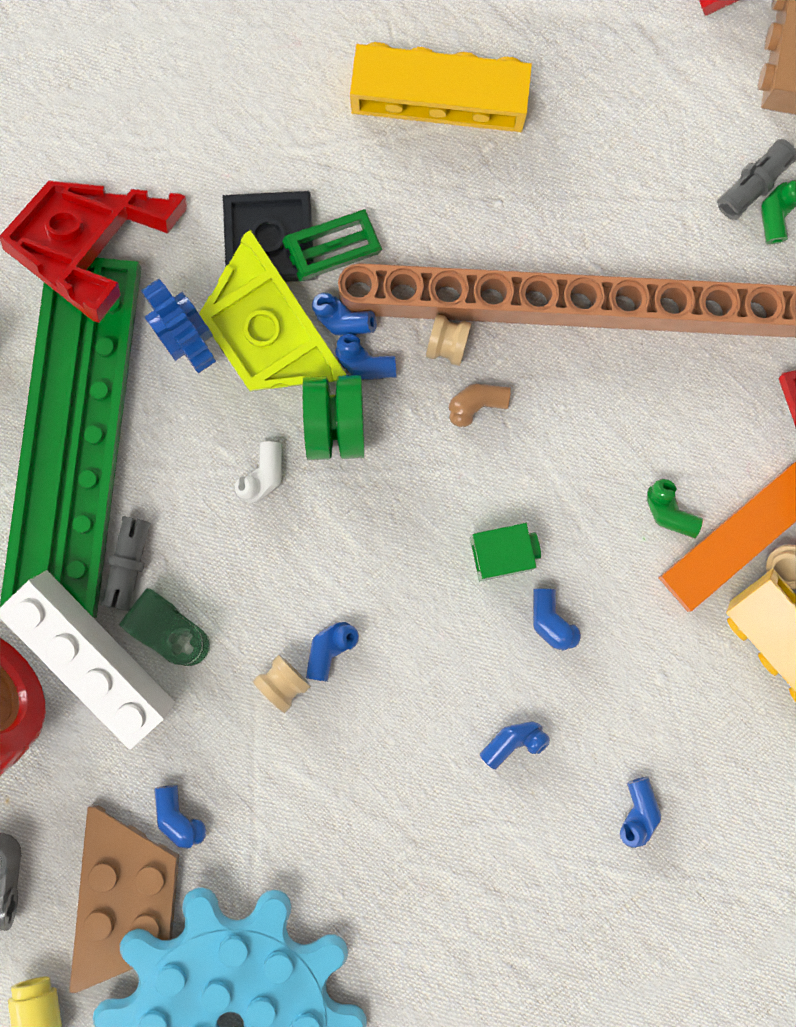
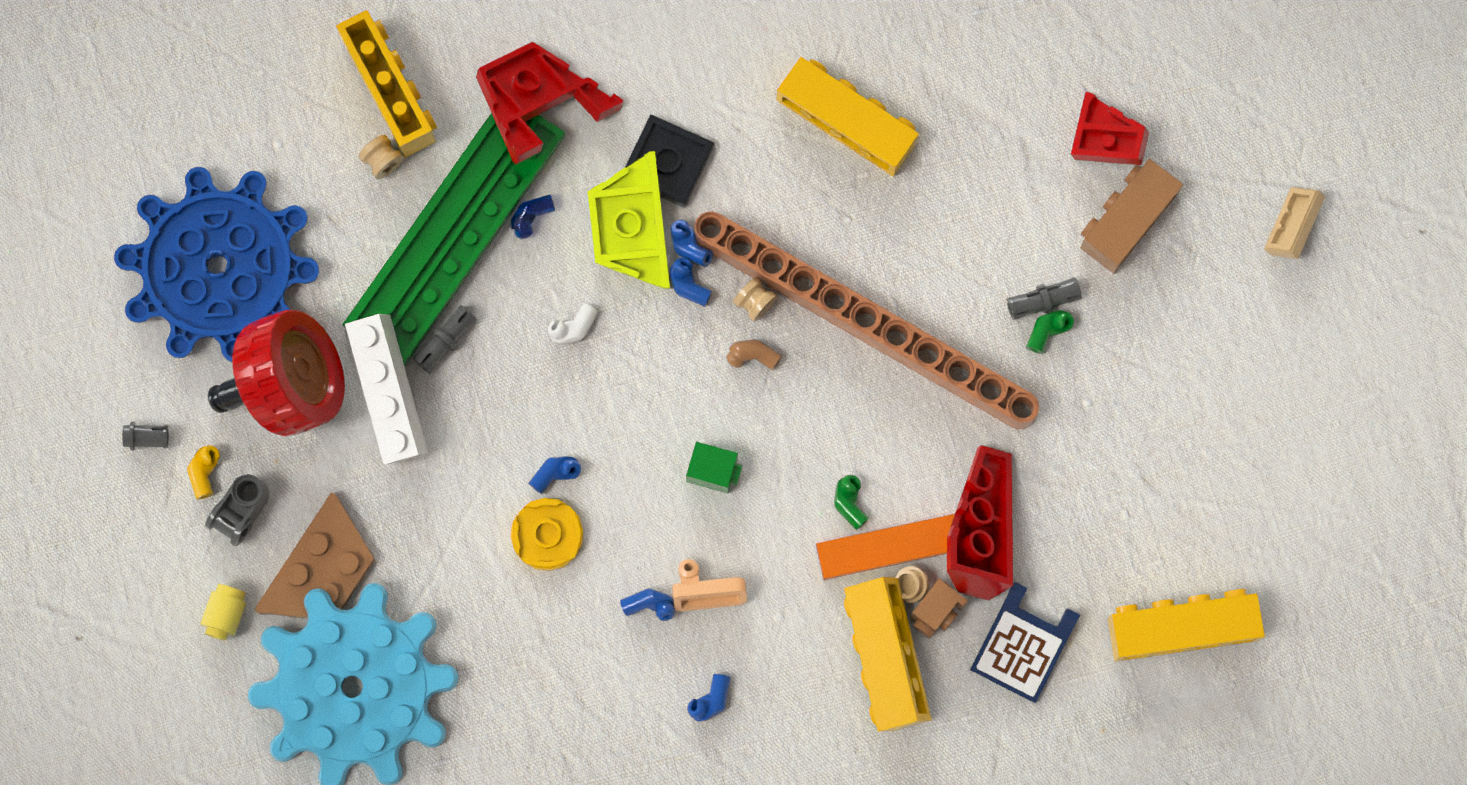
camera: 30 degrees right, 5 degrees down
(143, 375) = (527, 213): none -> clear blue arm
(160, 626) = (448, 395): clear green piece -> none
(173, 823) = (384, 535): blue arm -> none
(178, 325) = (569, 193): blue gear -> none
(281, 684) = (509, 477): tan wheel -> none
(300, 257) = (680, 187): green tile -> none
(333, 417) = (643, 311): green wheel -> none
(357, 724) = (547, 534): none -> yellow tile
(549, 624) = (719, 537): blue arm -> none
(559, 707) = (706, 594): none -> light nougat piece

